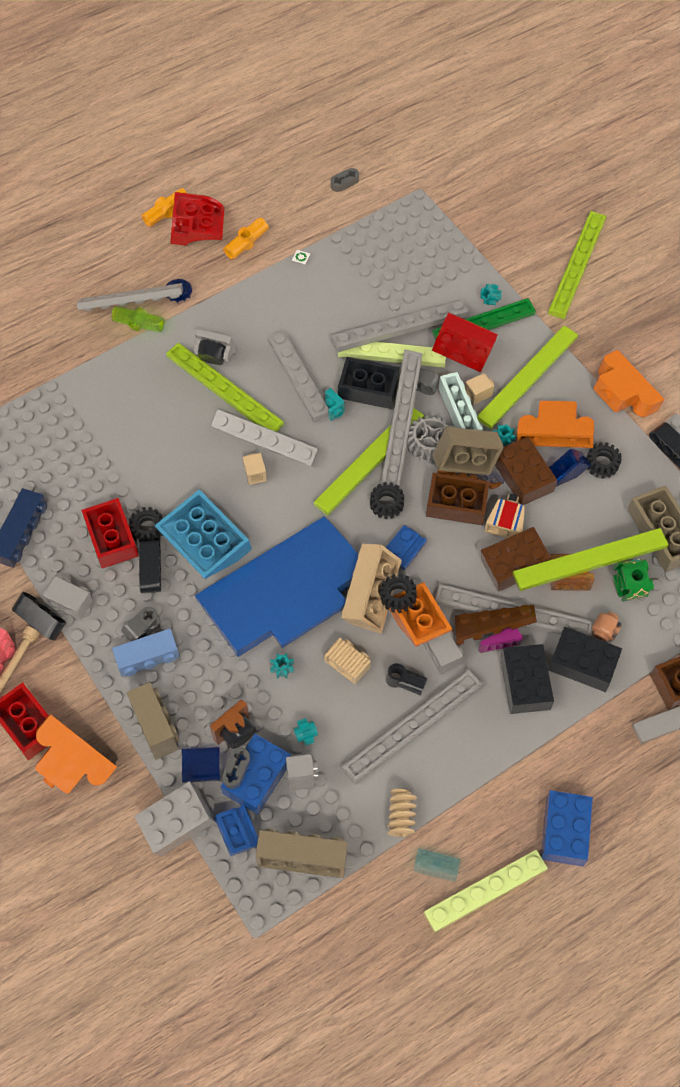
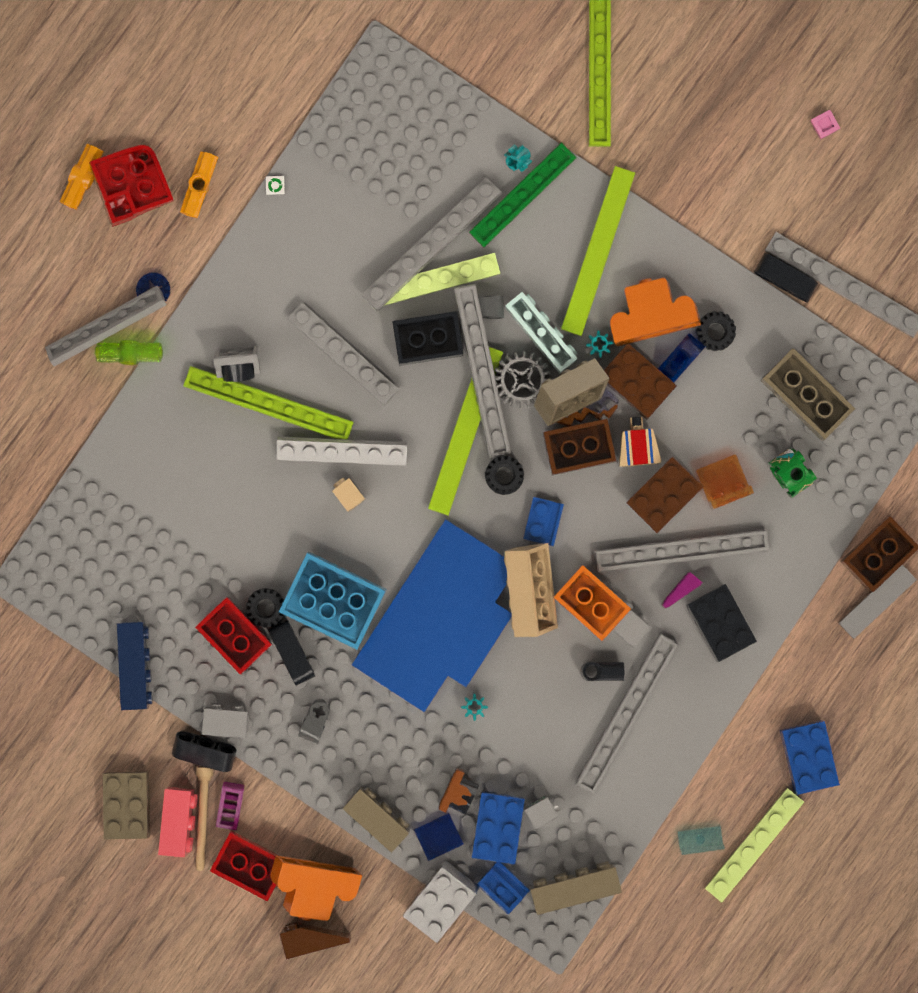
camera: 25 degrees left, 25 degrees up
(37, 803) = (306, 939): none -> reddish brown slope
(51, 662) = (234, 788): none -> magenta slope
(146, 653) = (334, 749): medium blue brick -> none
(240, 770) = (486, 837): dark grey beam -> none
(305, 731) = (527, 766): teal gear -> none
(335, 403) = (397, 376): teal bracket -> none
(344, 179) = (273, 40): dark grey beam -> none
(347, 660) = (537, 675): tan brick -> none
(398, 583) = (553, 583): black tyre -> none
(401, 813) = (651, 809): tan piece -> none
(464, 342) = (515, 248): red brick -> none
(479, 388) = (551, 292): tan brick -> none
(479, 623) = (658, 581): reddish brown wing -> none
(585, 659) = (771, 578): black brick -> none
(590, 559) = (743, 472): lime tile -> none
(606, 627) = (781, 533): nougat head -> none
(623, 386) = (709, 221): orange brick -> none

